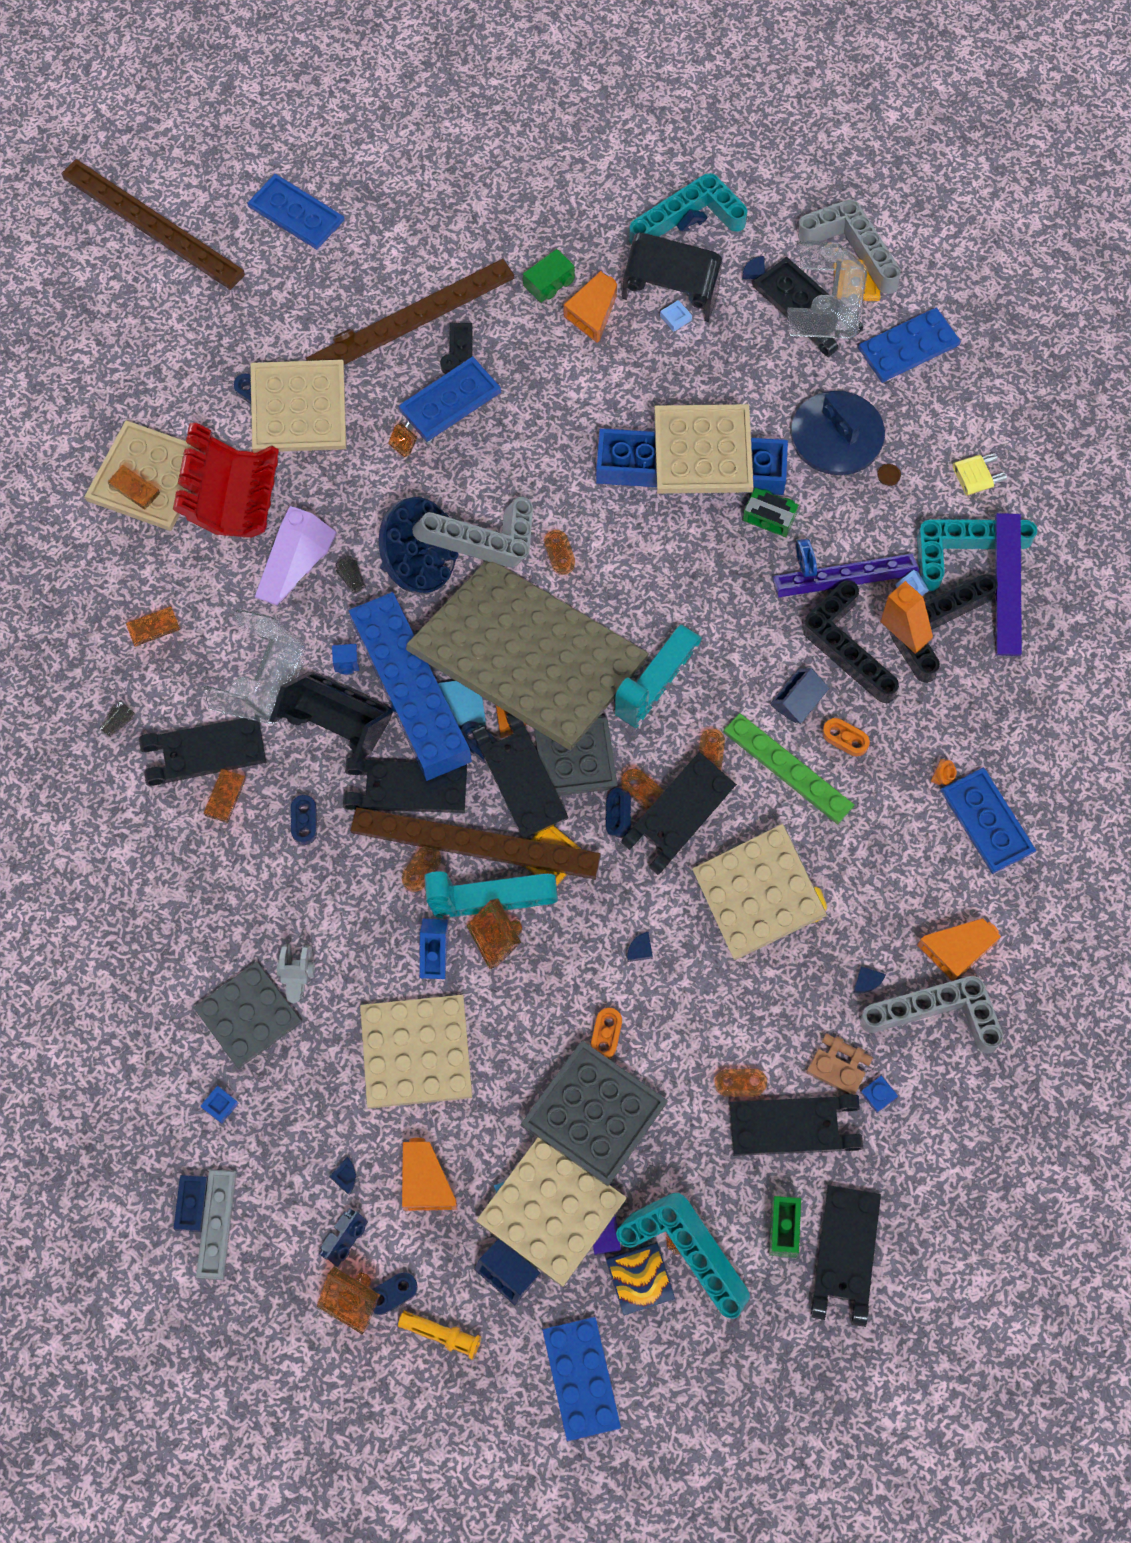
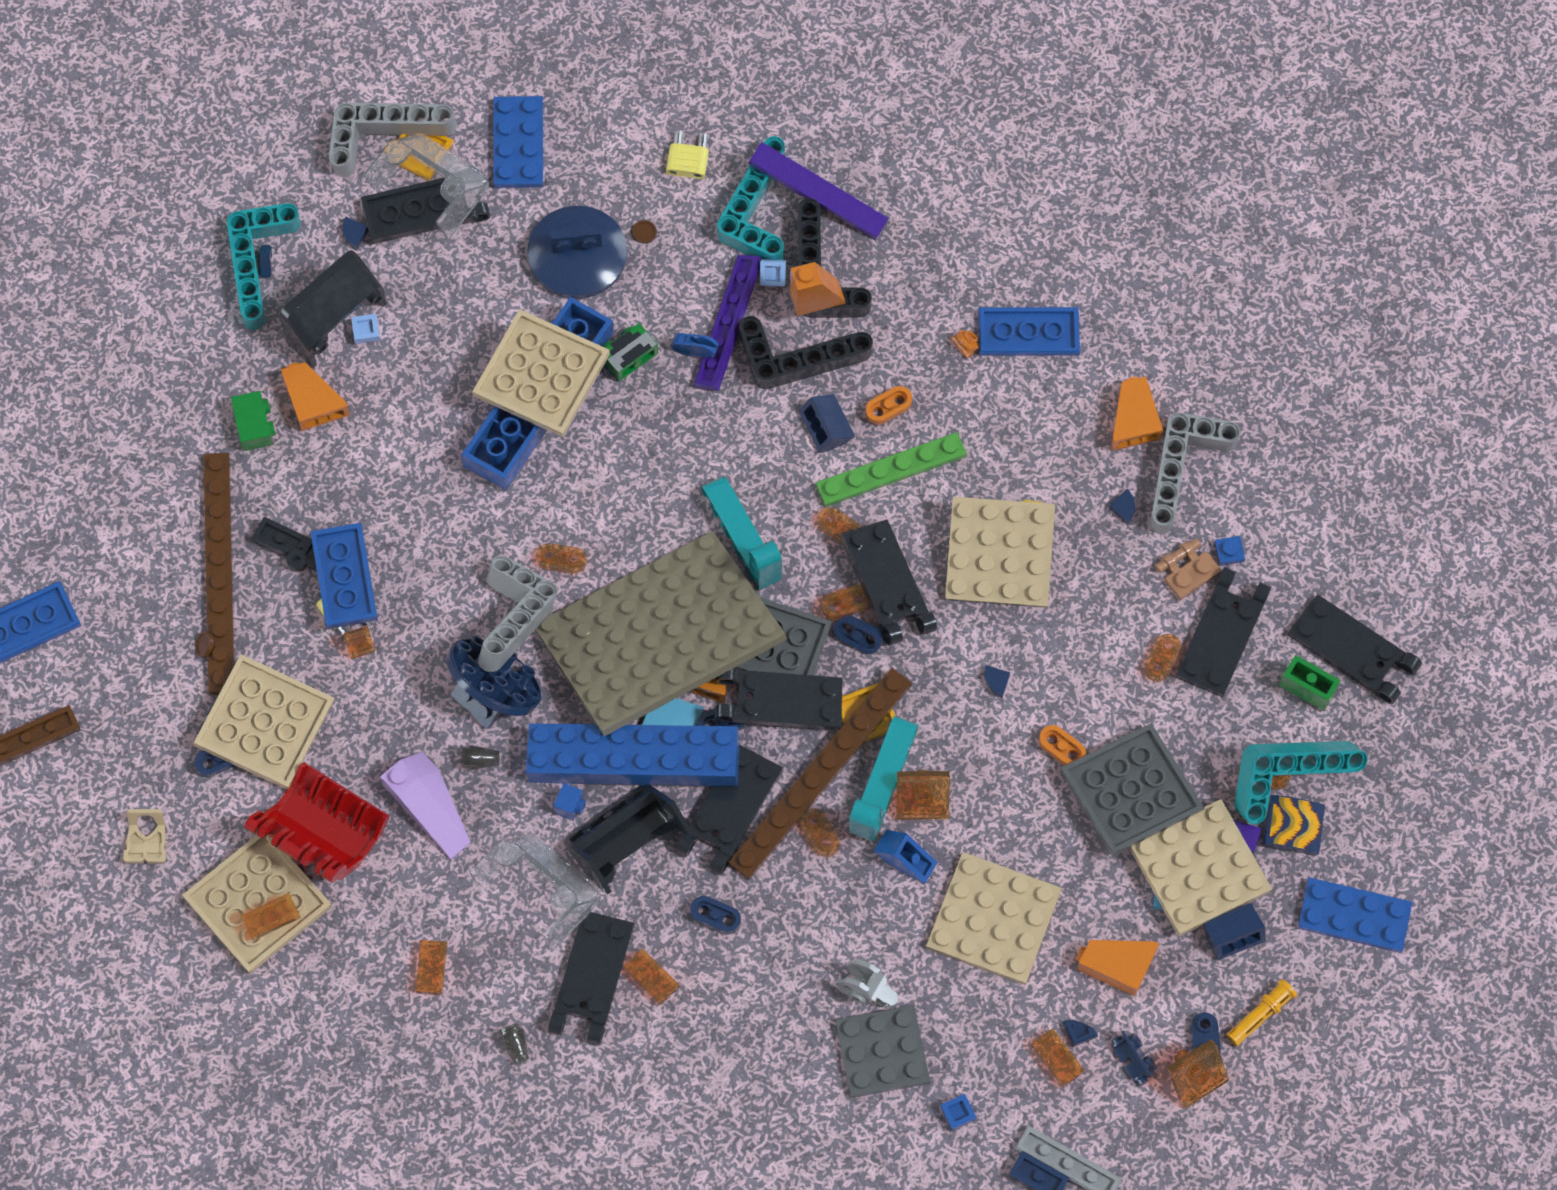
camera: 65 degrees left, 0 degrees up
(154, 376) = (143, 848): none -> tan piece
(310, 1168) = (1058, 1057): none -> clear orange plate

